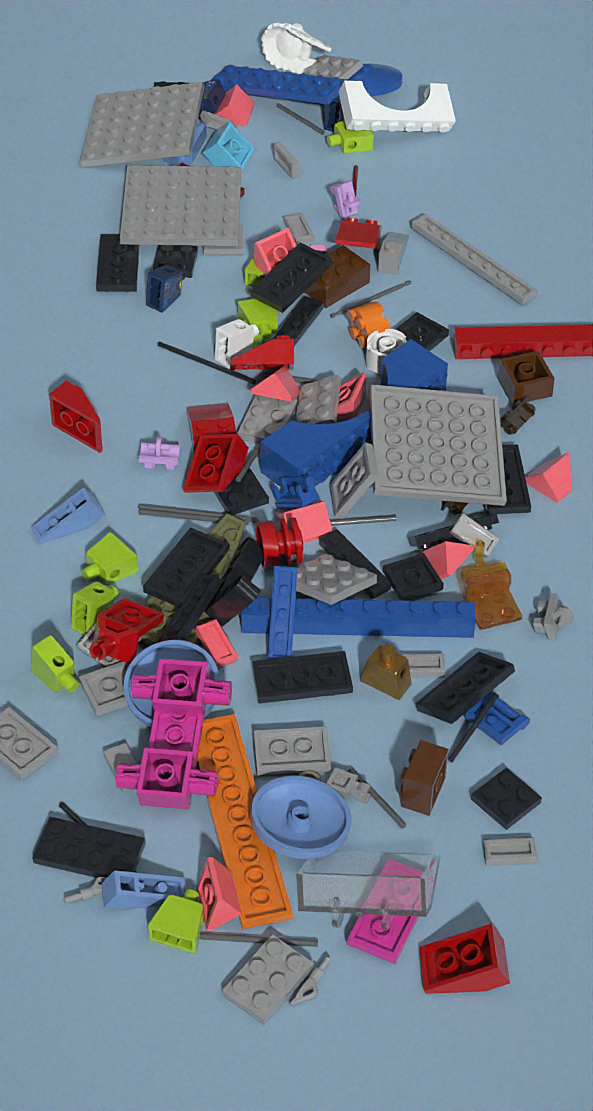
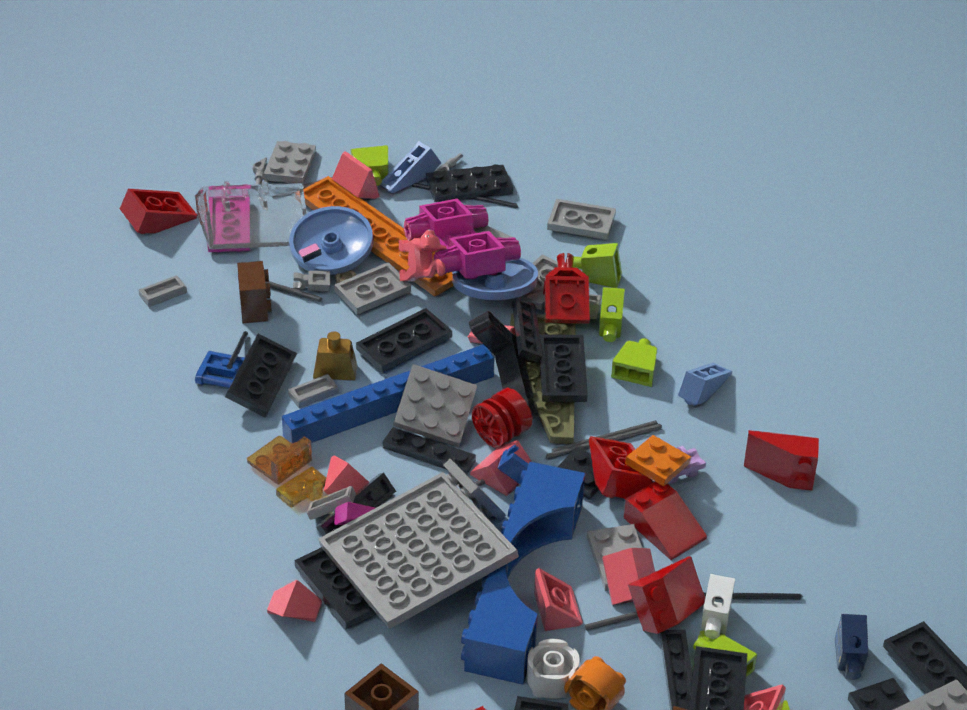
camera: 150 degrees right, 5 degrees down
(187, 438) = (658, 460): none -> orange plate
(238, 713) = (420, 257): none -> coral animal
(248, 463) = (594, 494): dark grey axle -> none
(282, 612) = (448, 351): blue tile -> none
(319, 401) = (578, 579): light grey plate -> none
(335, 804) = (310, 252): none -> piece
(413, 577) = (367, 453): black plate -> none
(470, 507) = (350, 511): none -> dark pink slope
(506, 798) = (184, 322): black plate -> none
(521, 410) = (370, 655): dark brown hinge -> none
(554, 617) = (218, 466): light grey hips -> none

